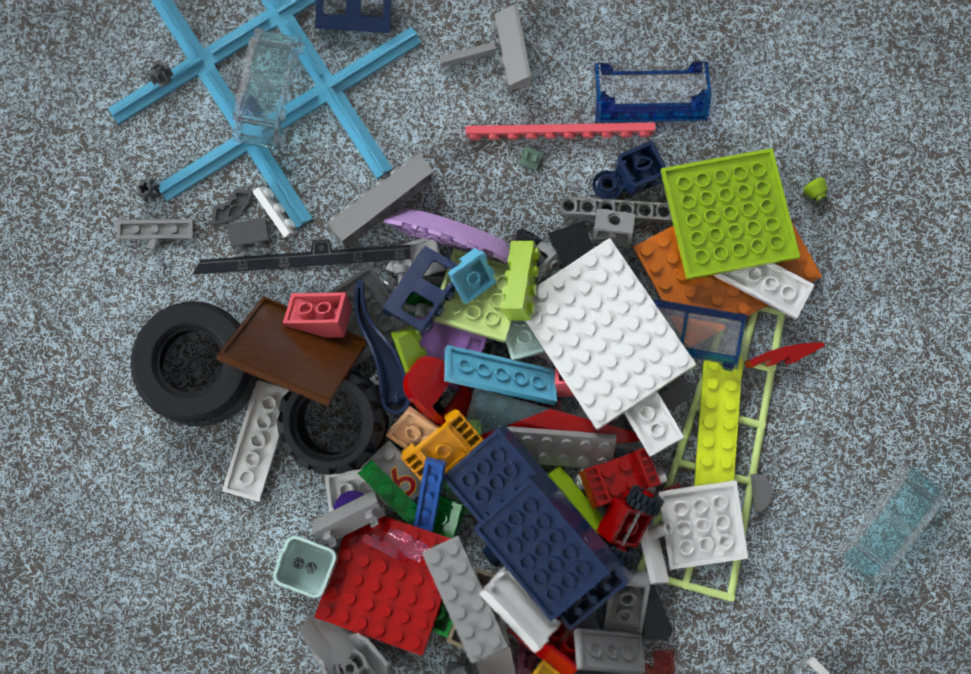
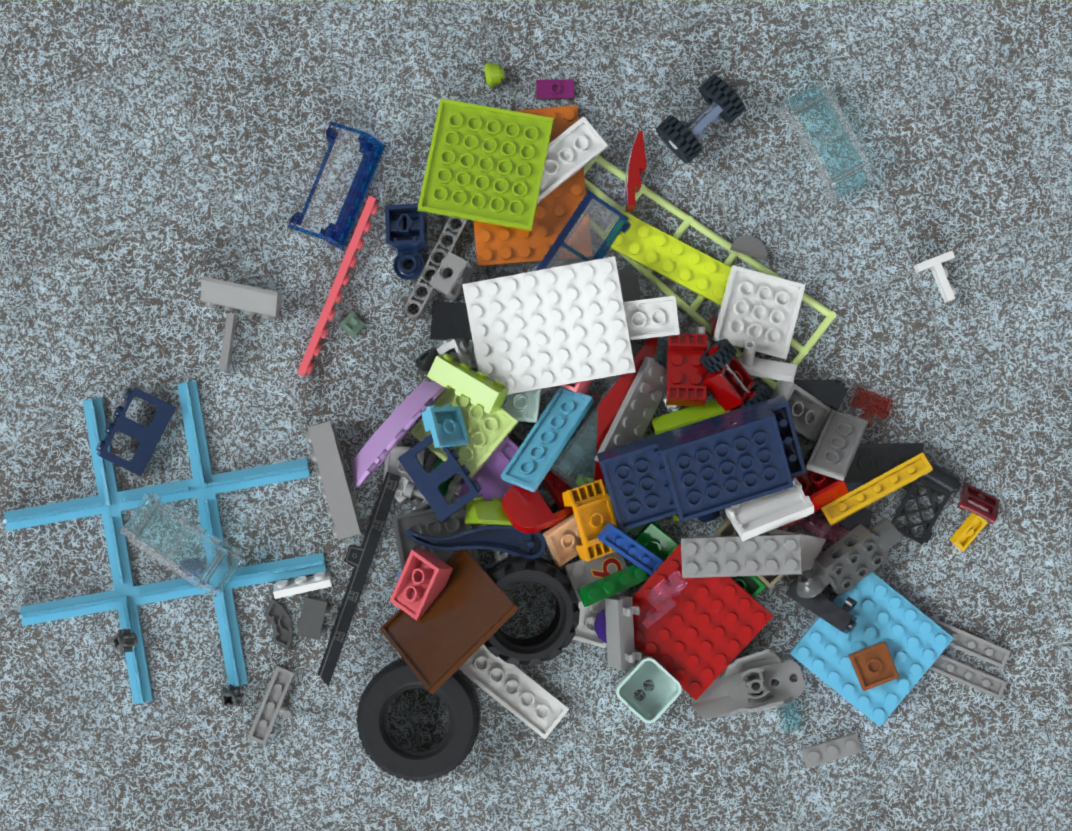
camera: 75 degrees left, 5 degrees up
(827, 251) = (555, 89): none -> magenta plate
(885, 407) = (722, 103): none -> black plate

